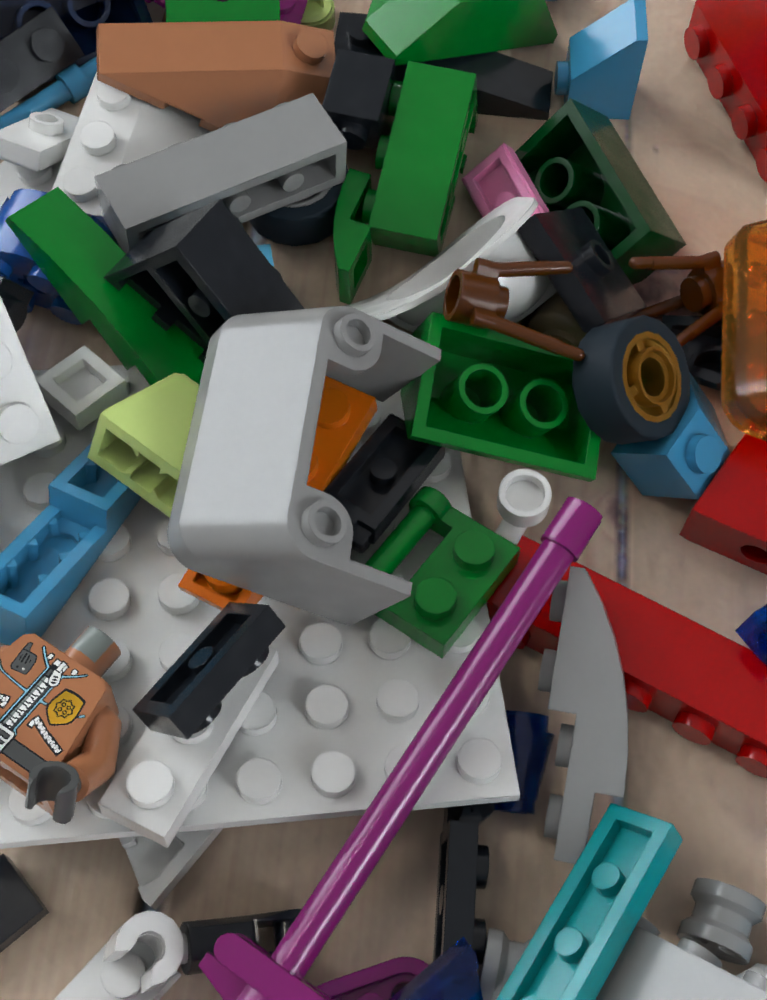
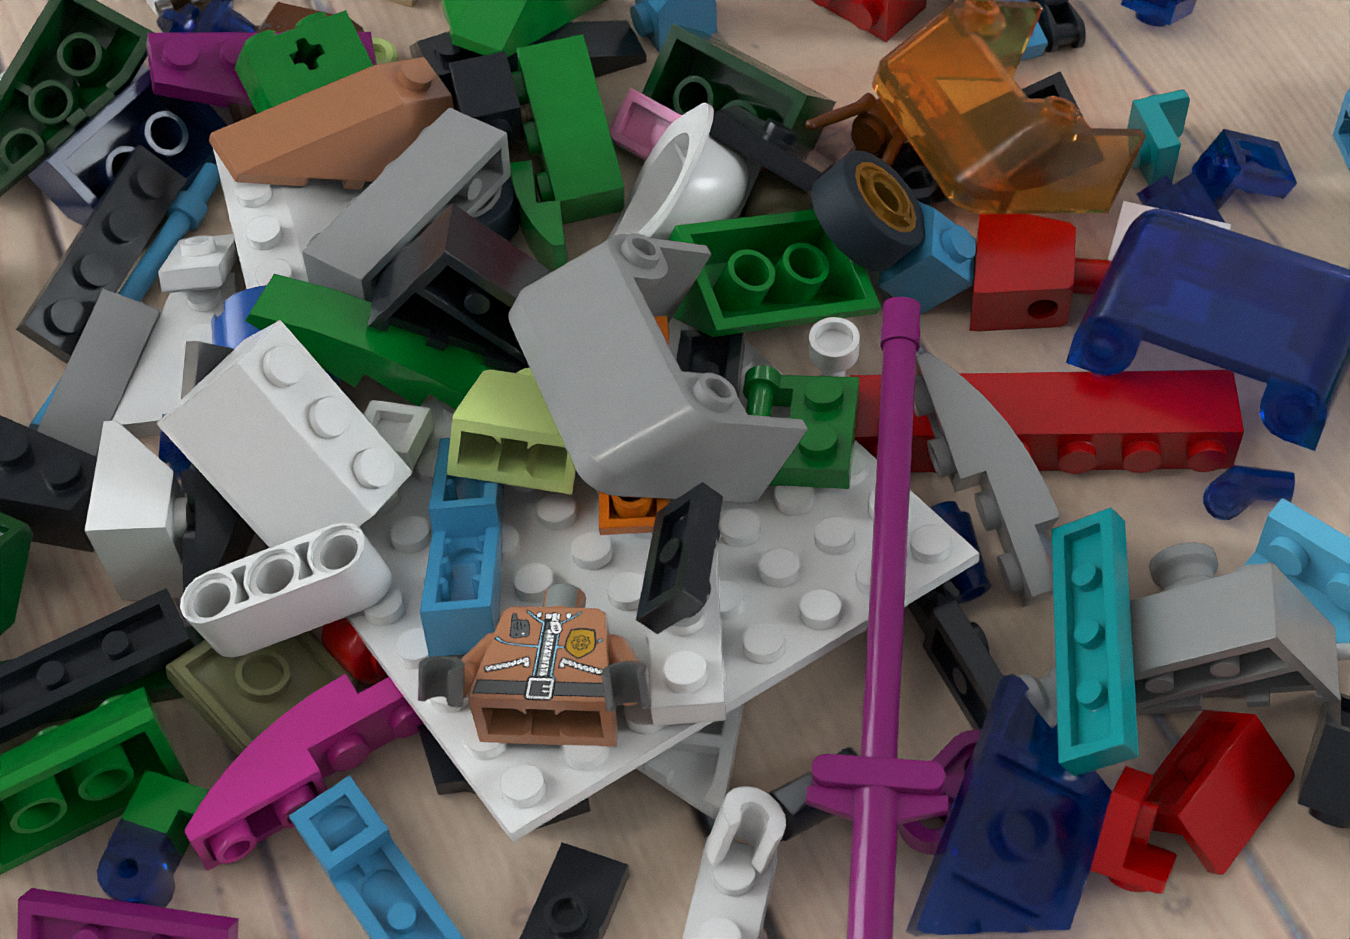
camera: 25 degrees left, 10 degrees down
(482, 302) = (715, 198): reddish brown plant -> none

